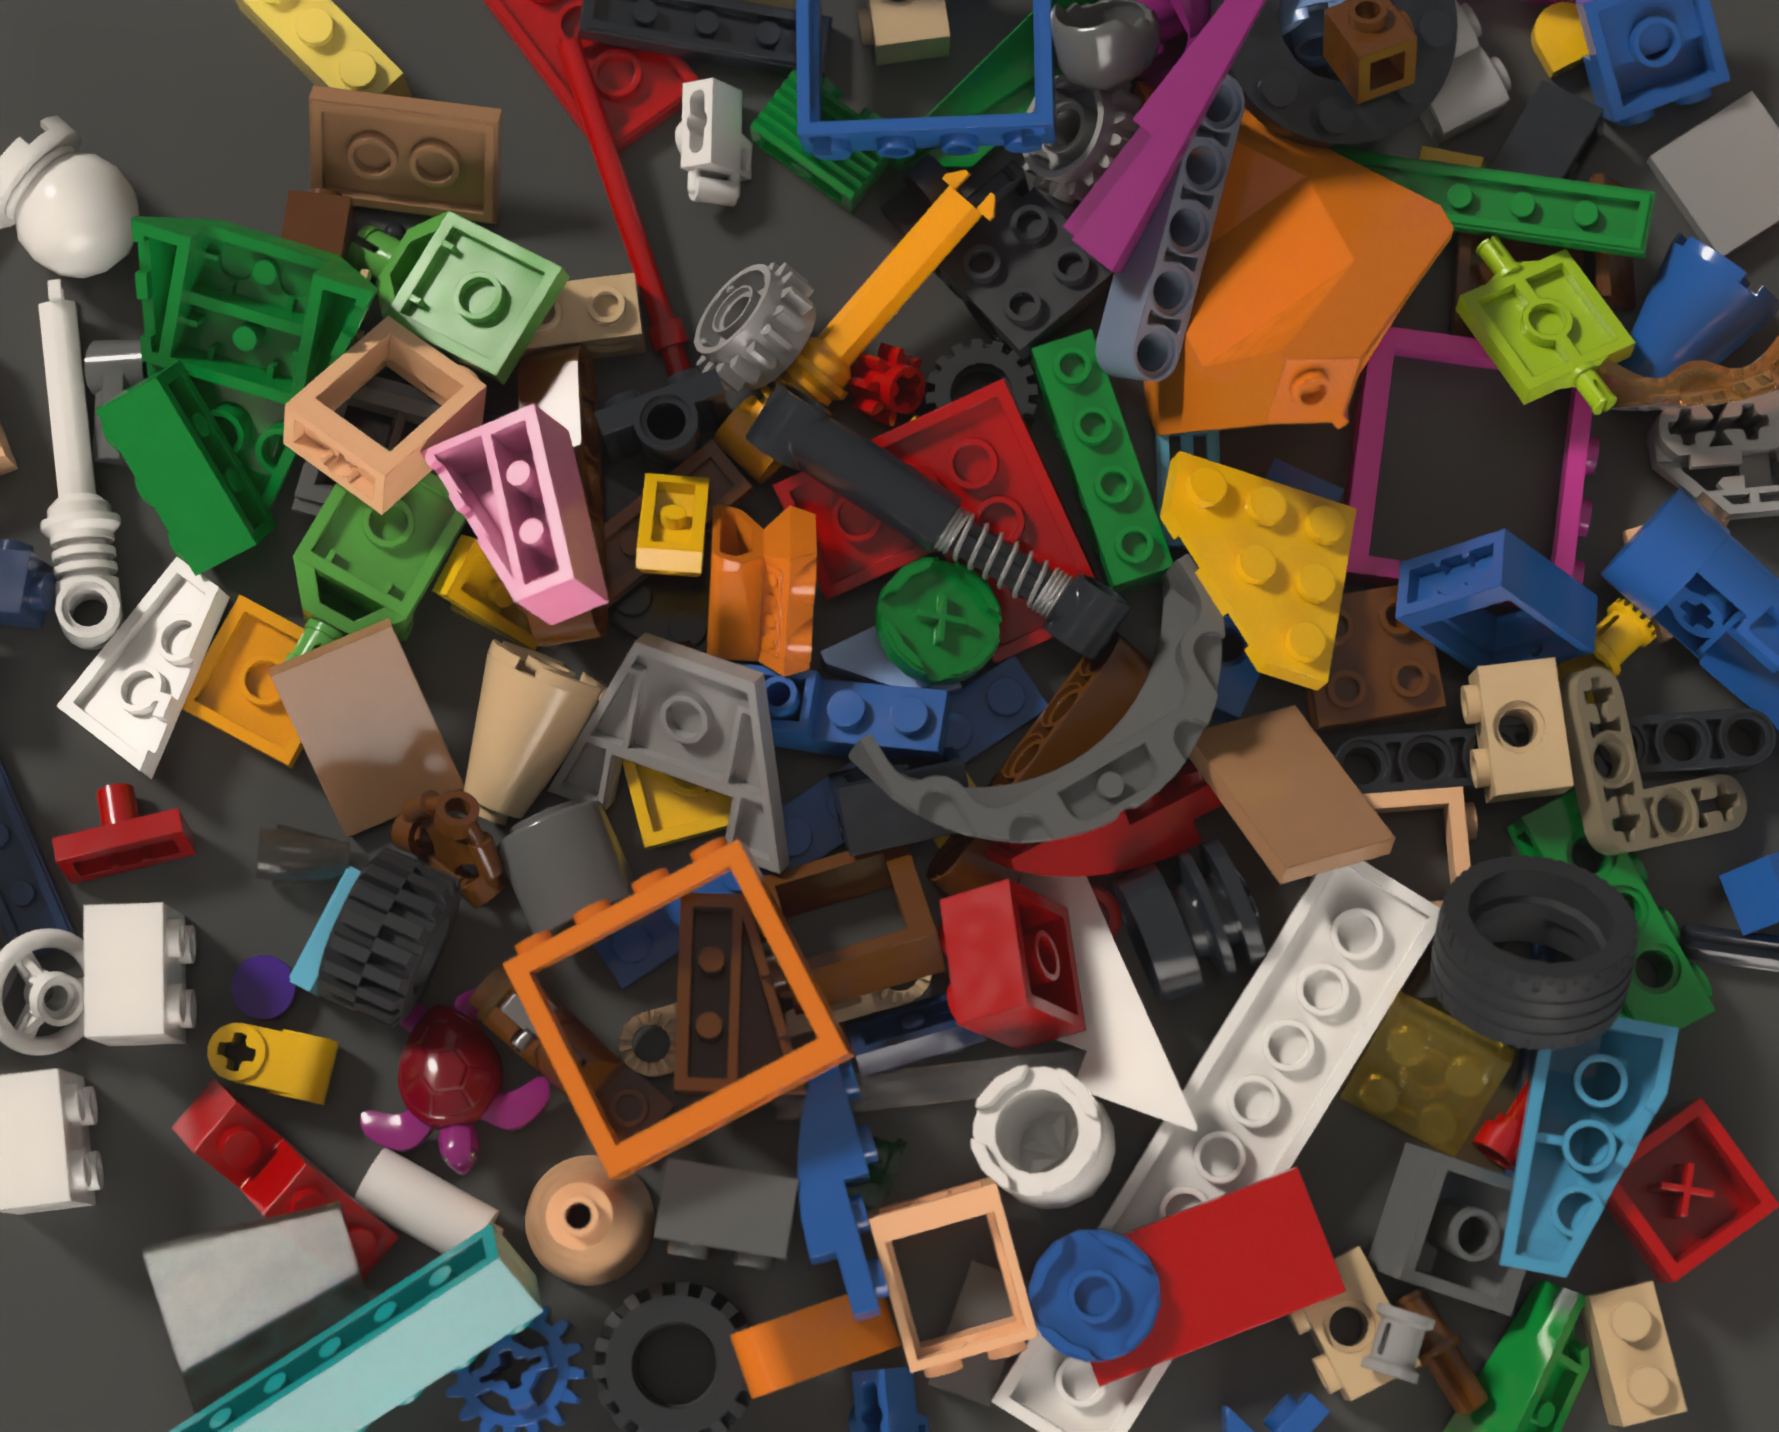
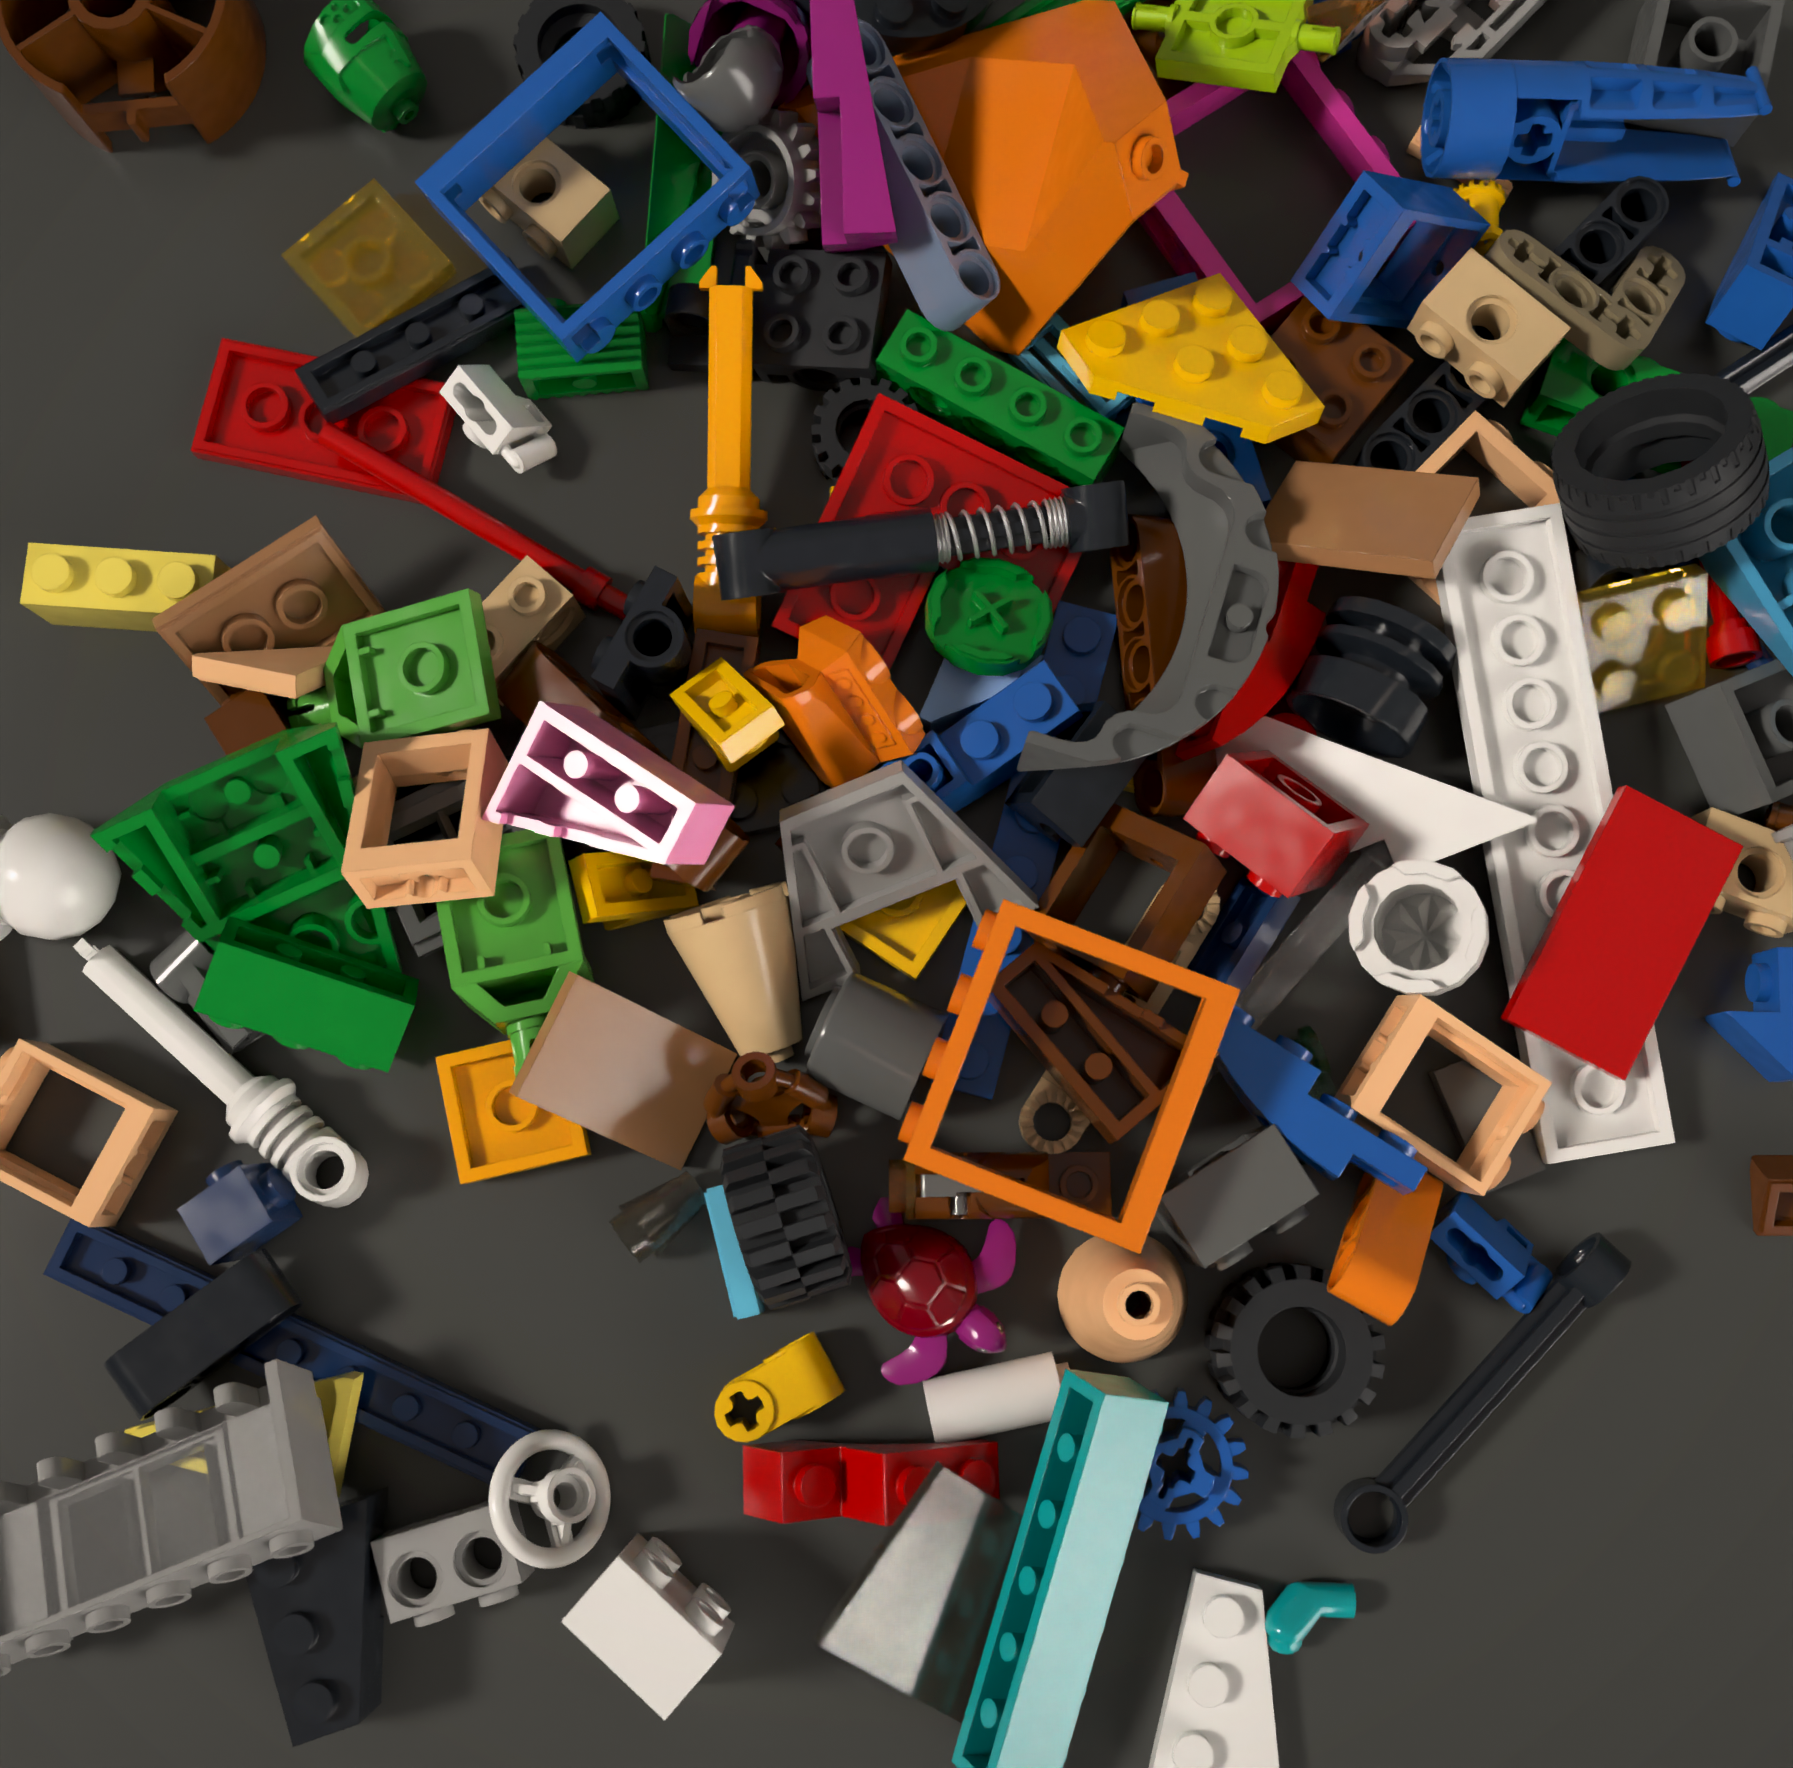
camera: 35 degrees left, 0 degrees up
(123, 838) = (508, 1323): red tile -> none
(137, 974) = (612, 1420): white brick -> none
(148, 667) = (412, 1174): white wing -> none
(263, 988) = (718, 1341): dark purple tile -> none
(370, 199) = (273, 671): none -> light nougat tile
(755, 326) = (654, 516): light grey gear -> none
(887, 384) = (789, 482): red gear -> none
(1094, 1295) = (1564, 1013): blue tile -> none

